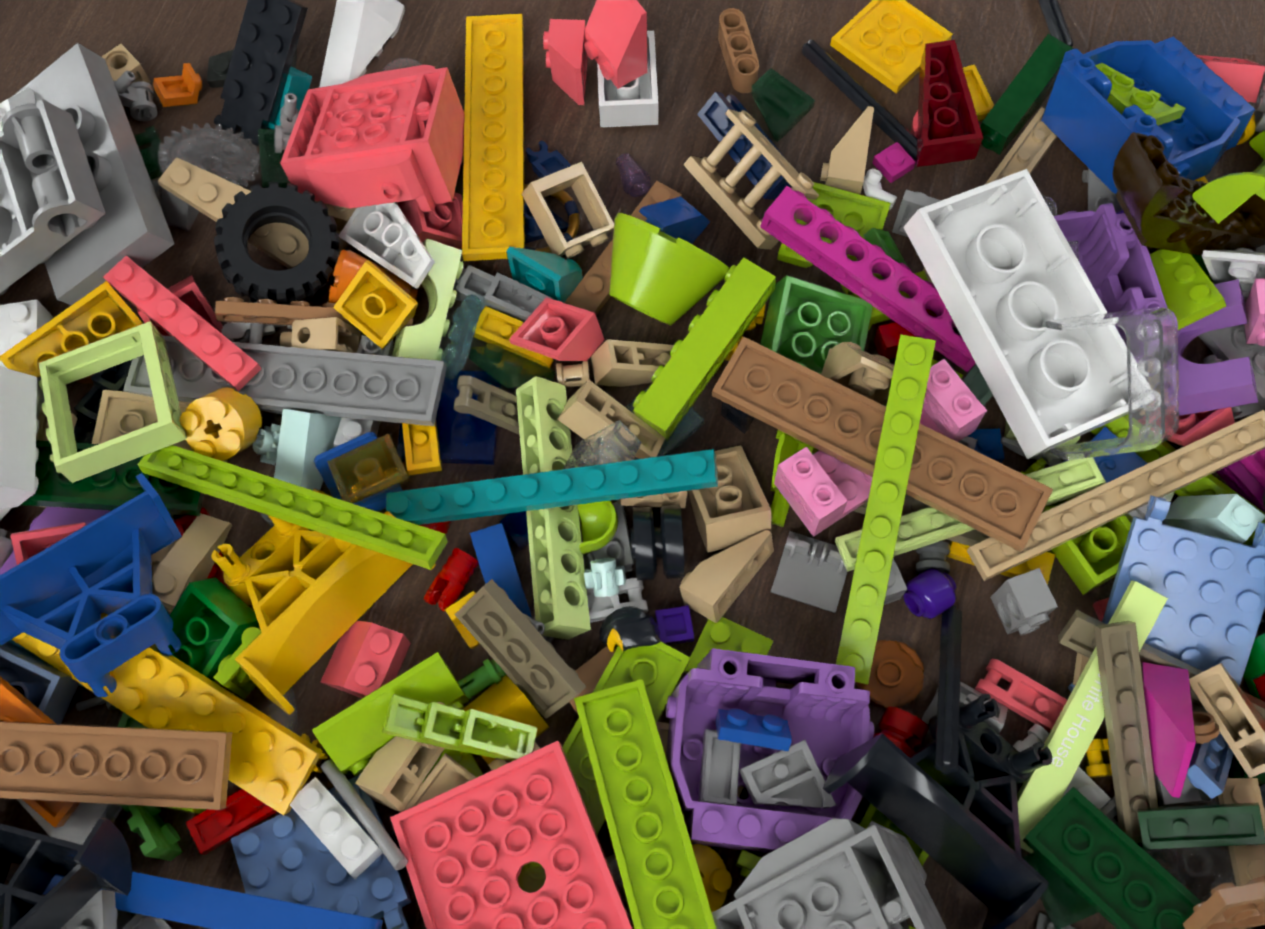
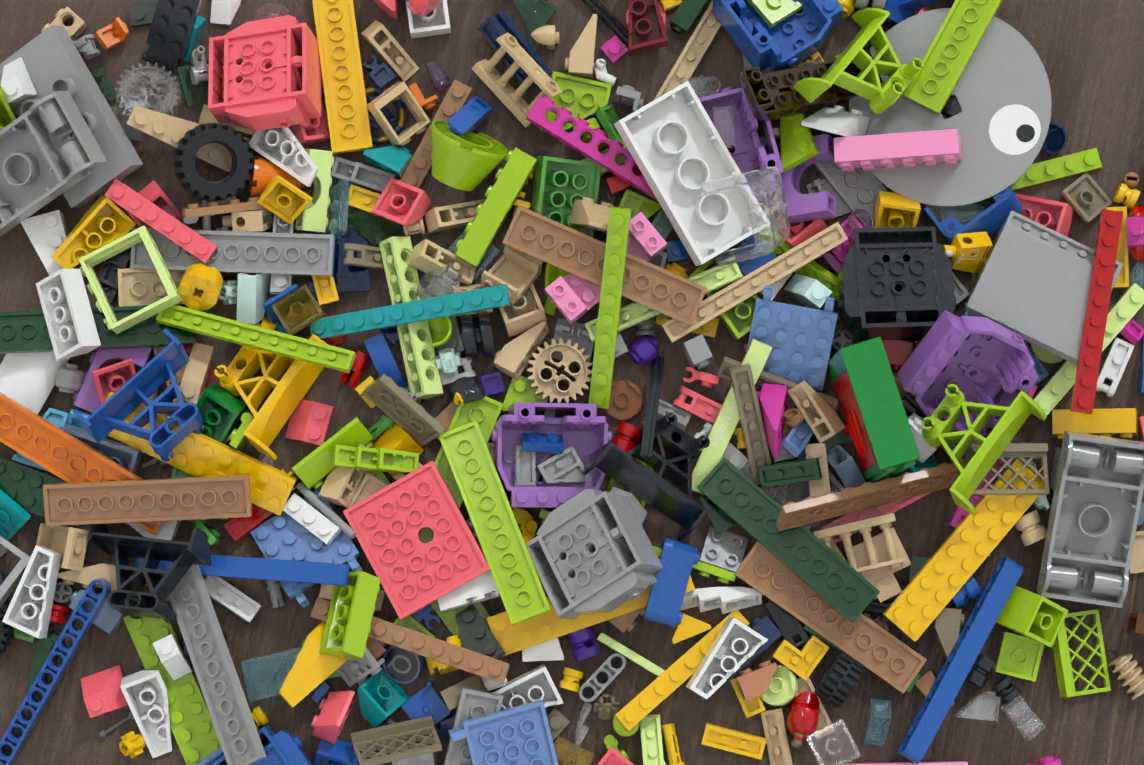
camera: 10 degrees left, 15 degrees up
(566, 132) = (390, 50): none -> tan slope
(616, 204) = (426, 104): none -> orange bracket
(737, 446) = (514, 270): none -> tan panel
(799, 129) = (547, 36): none -> tan plate
(806, 589) = (569, 355): none -> tan gear
(1033, 649) = (706, 379): none -> coral plate

